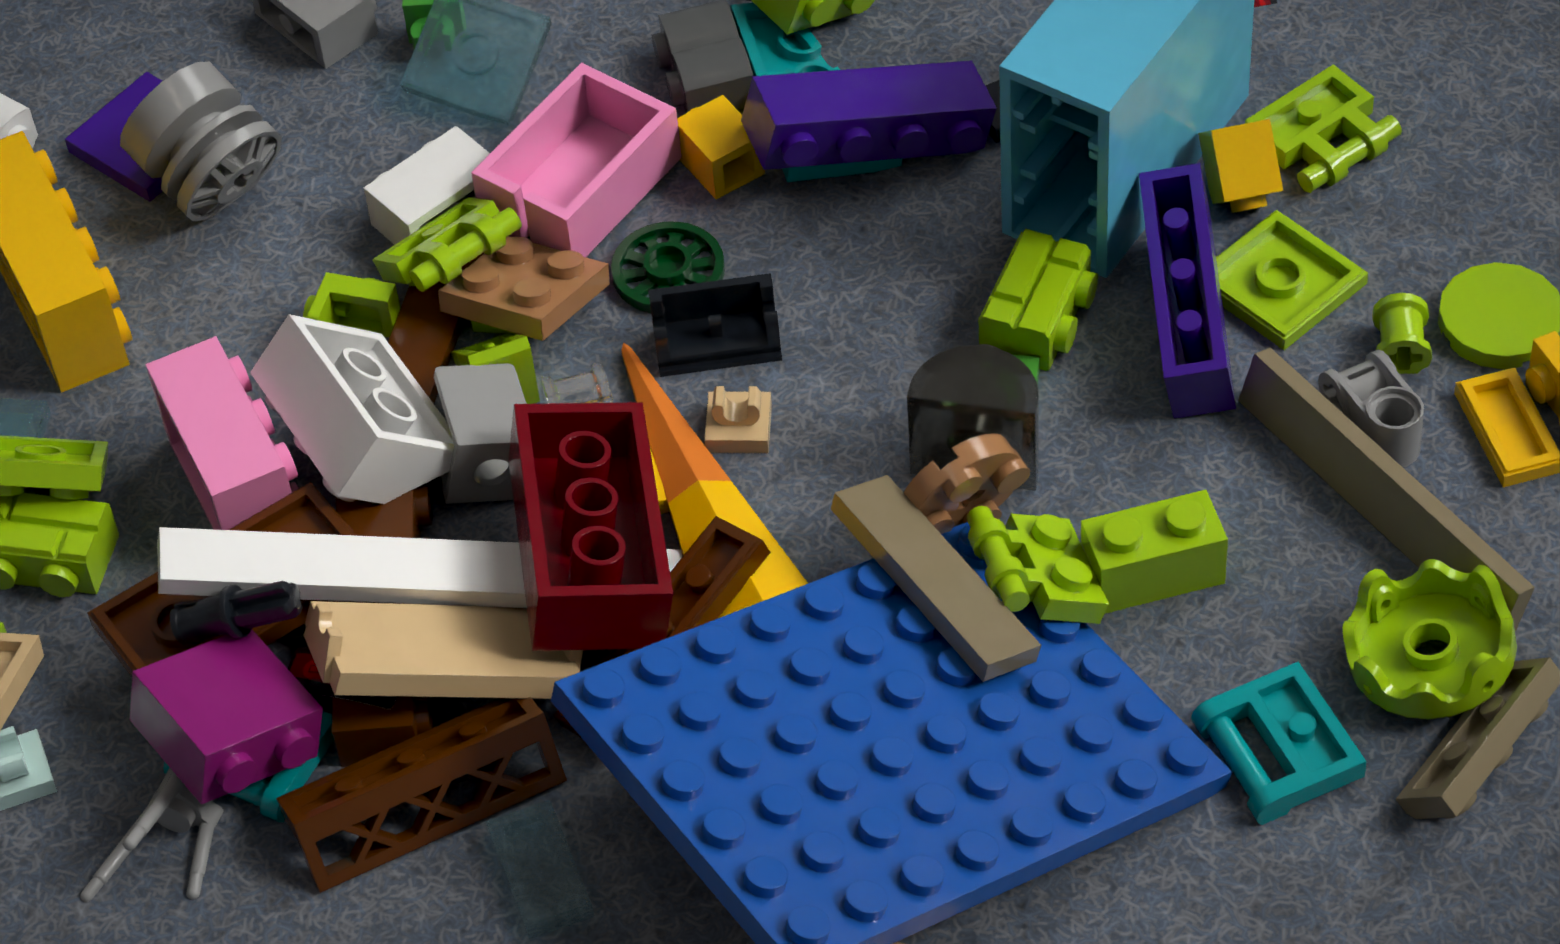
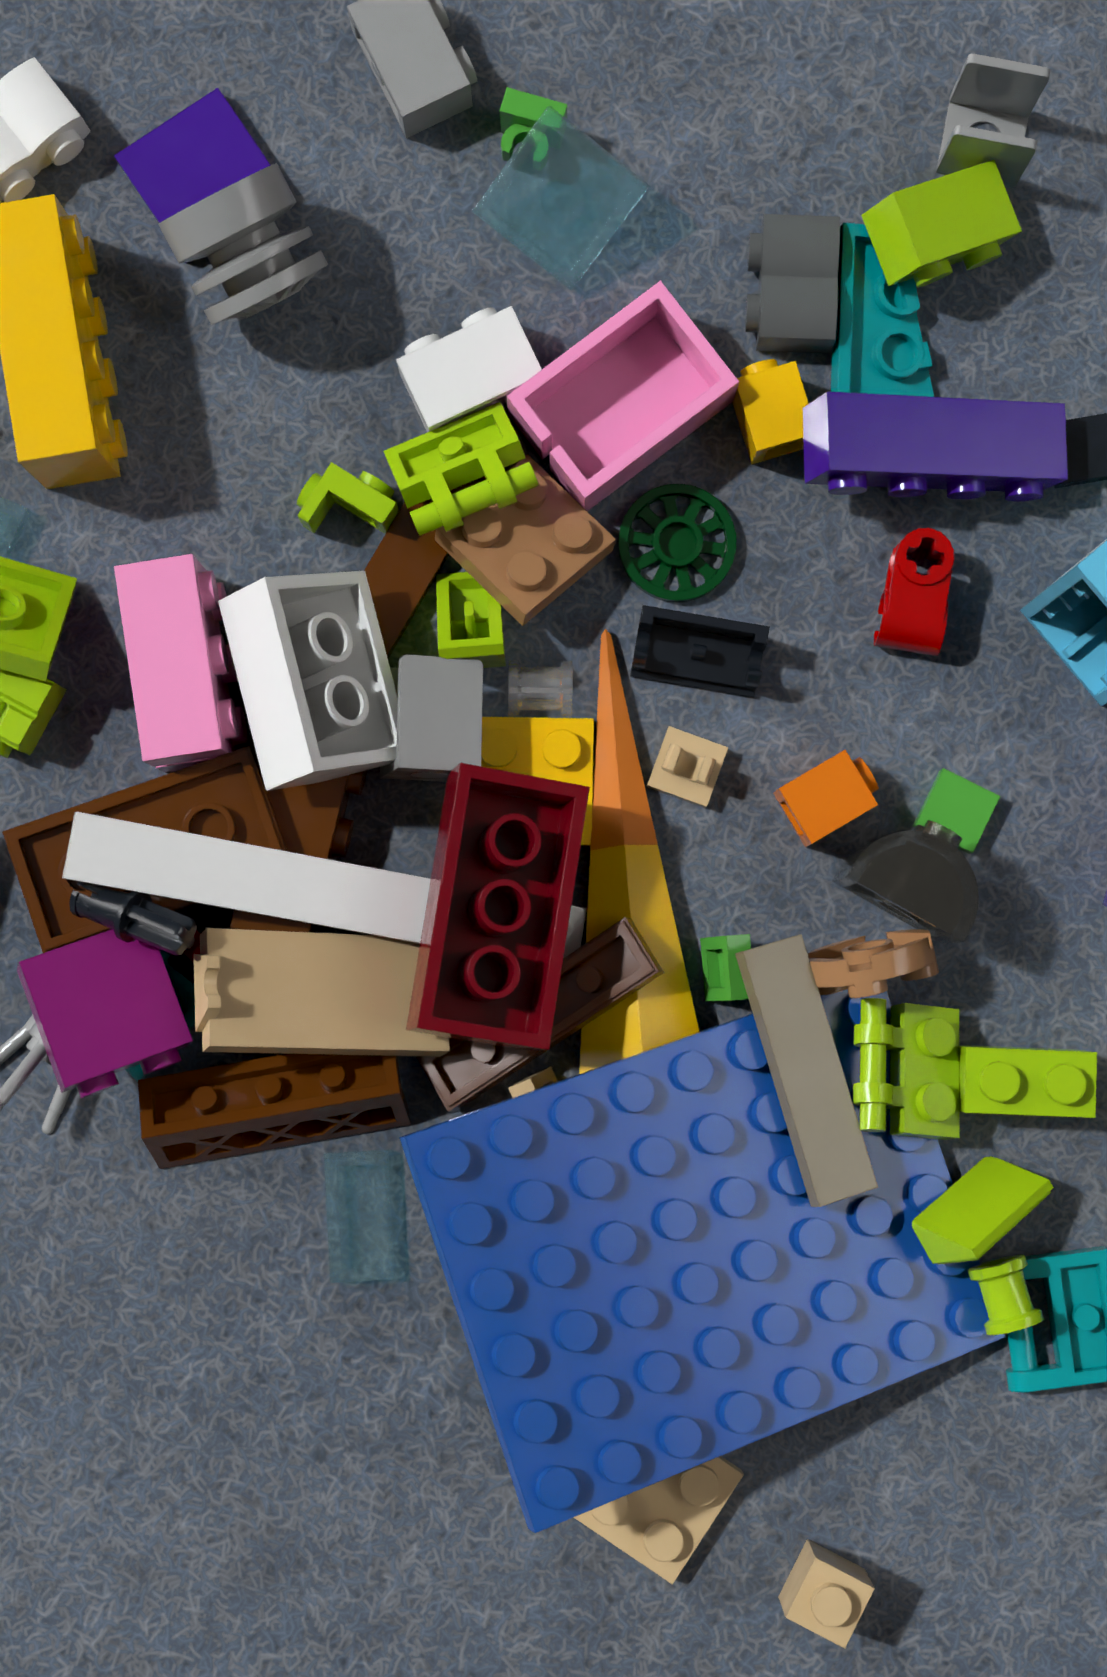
camera: 15 degrees right, 35 degrees up
(831, 545) = (721, 969): none -> bright green tile
(871, 398) = (828, 796): none -> orange brick
(898, 230) = (912, 603): none -> red piece
(1038, 297) = (1022, 730): lime brick -> none
(1155, 661) = (978, 1210): none -> lime slope
(1208, 711) = (1005, 1295): none -> lime bush

